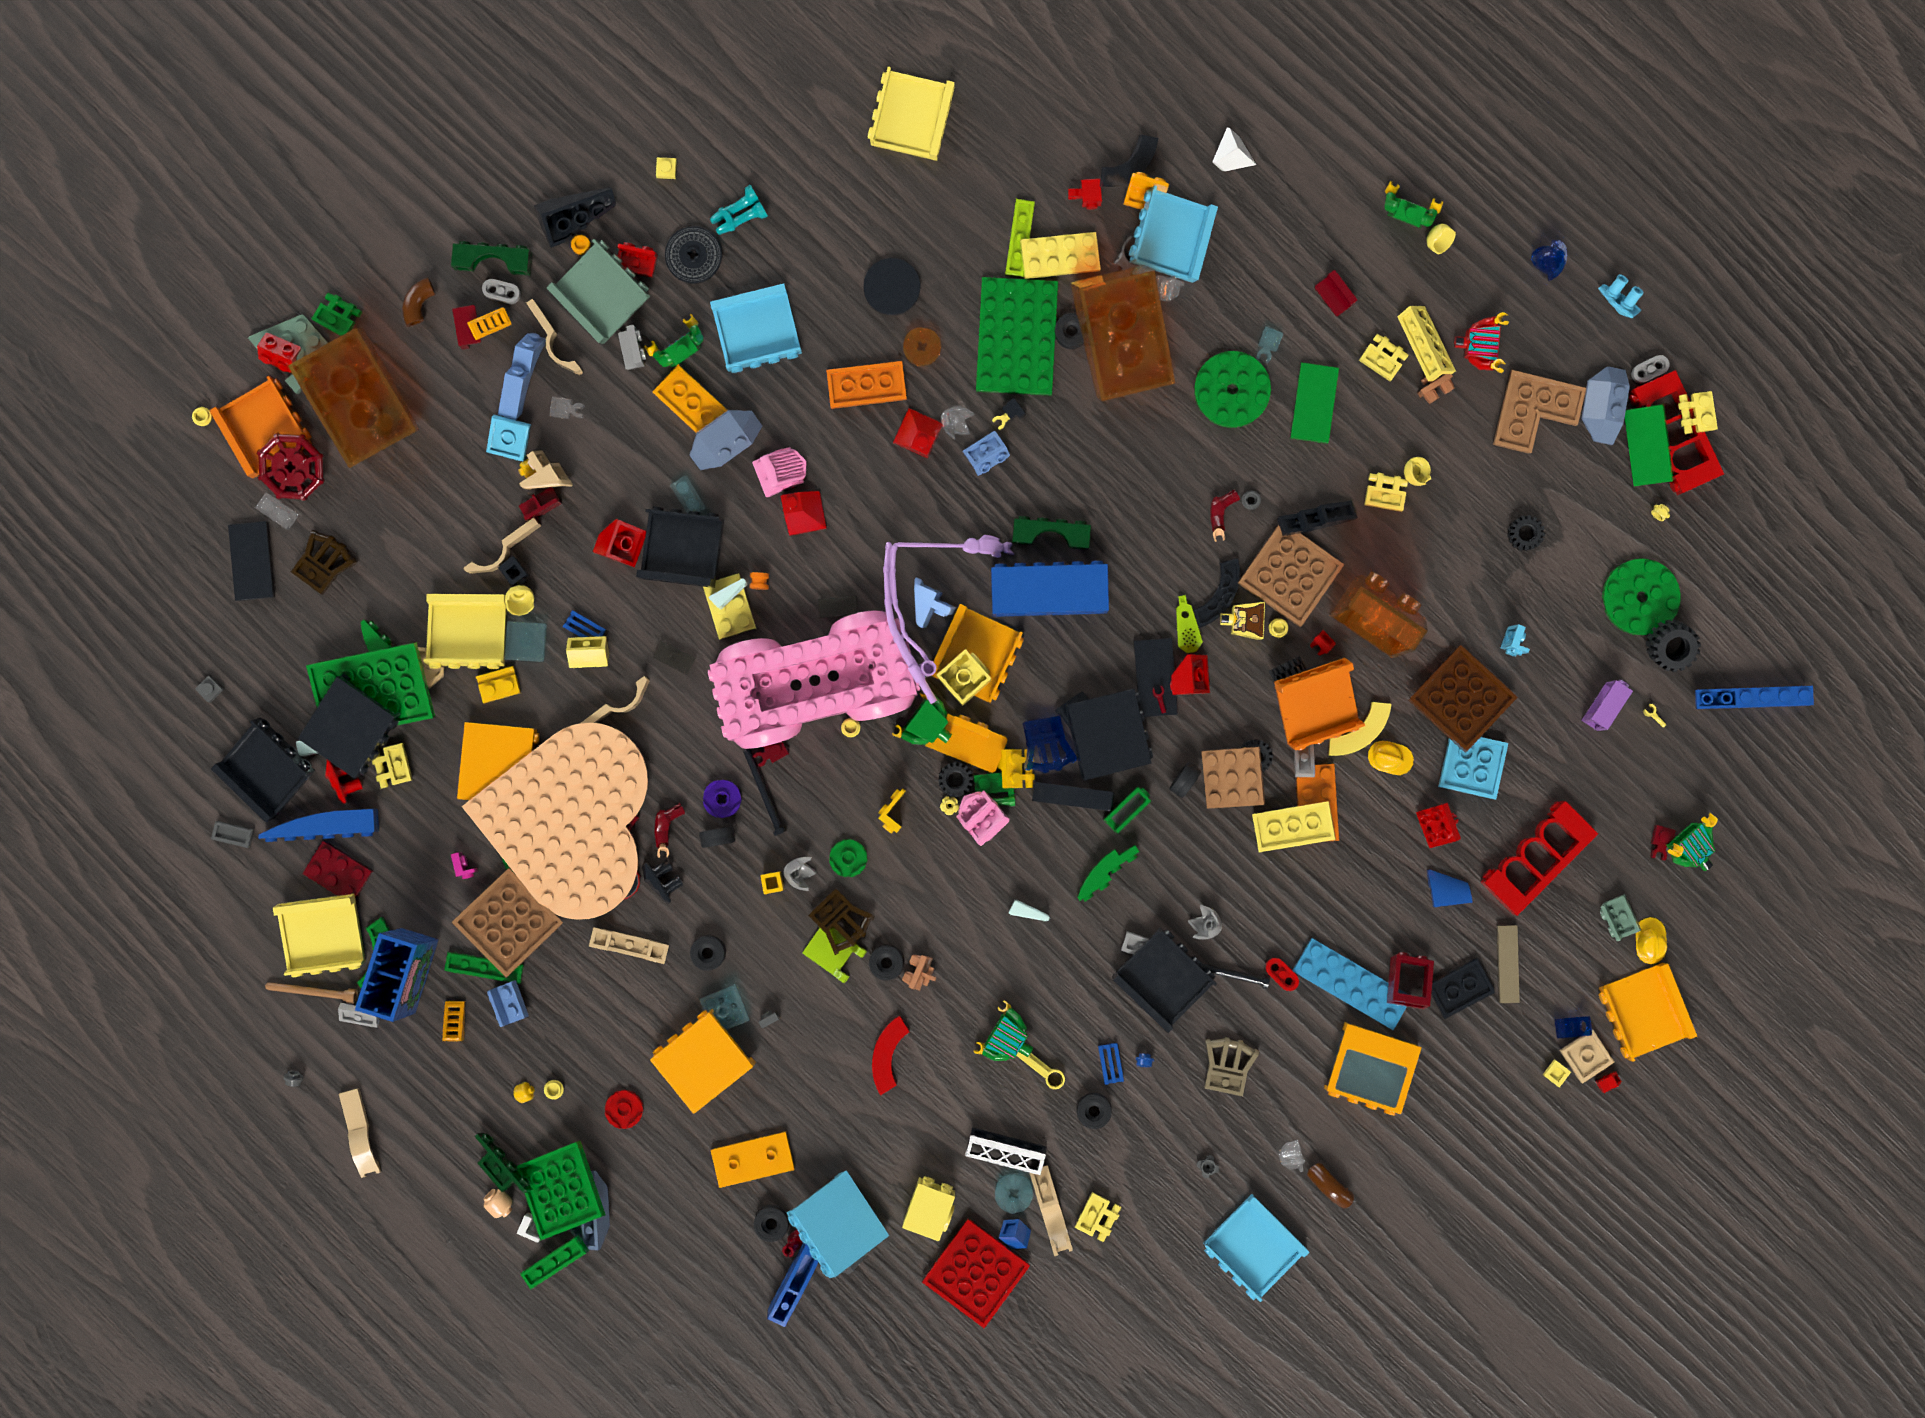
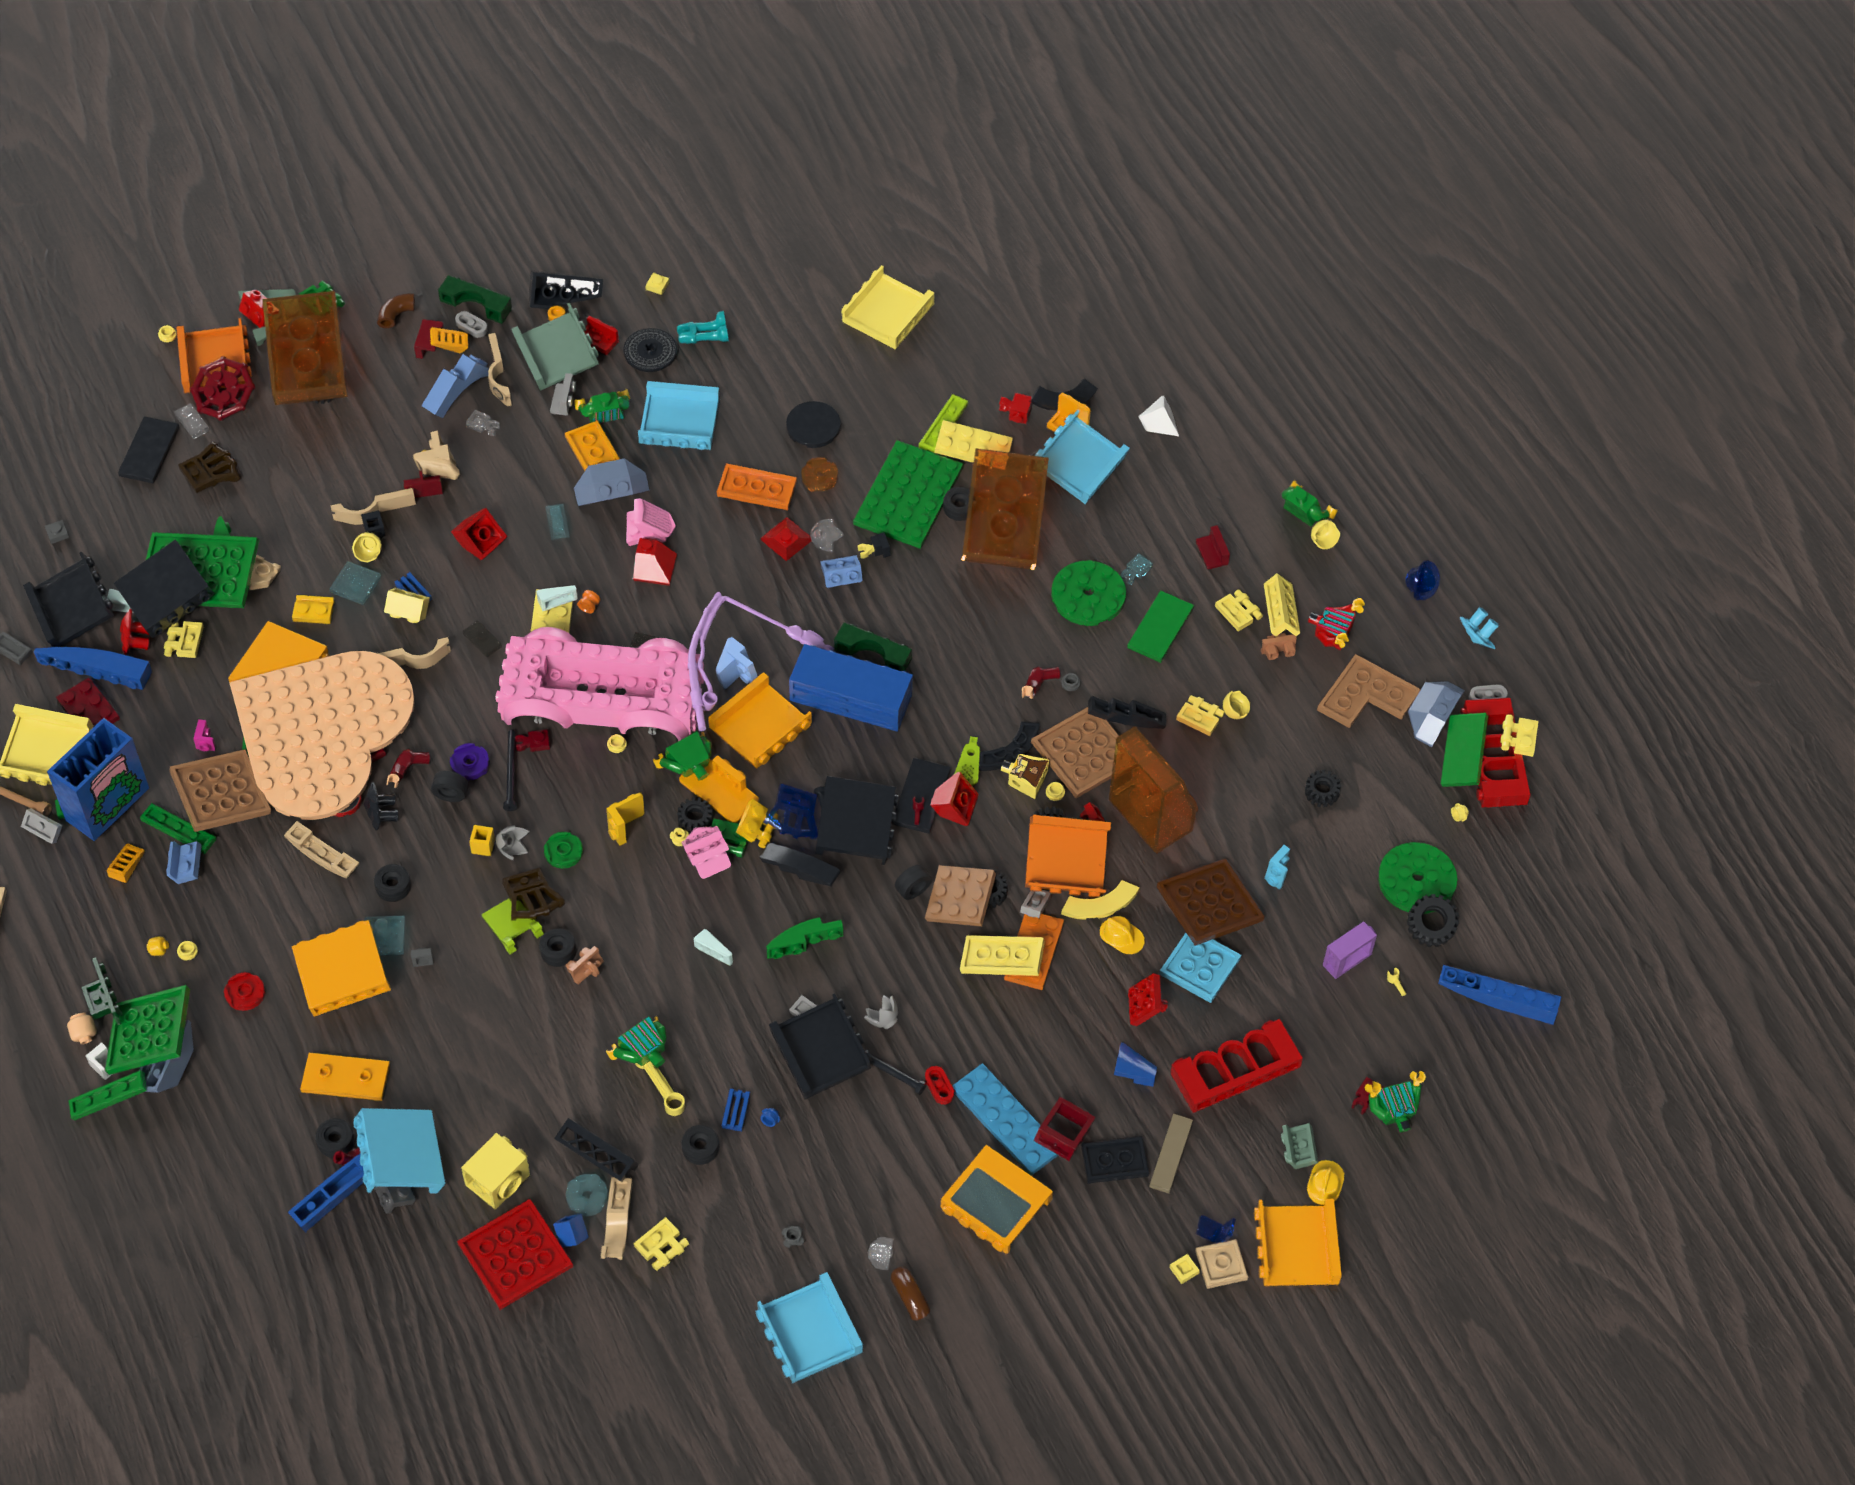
camera: 15 degrees right, 30 degrees down
(466, 630) = (308, 554): light yellow panel -> none
(508, 438) = (419, 425): medium azure tile -> none
(681, 547) = (532, 553): black panel -> none
(883, 1054) = (517, 1025): red tile -> none
(964, 676) = (740, 725): light yellow brick -> none
(1127, 809) = (846, 891): green window -> none
(1168, 287) = (1059, 496): clear piece -> none
(1226, 1078) = (847, 1160): dark tan plate -> none
(1608, 1082) = (1235, 1296): red piece -> none

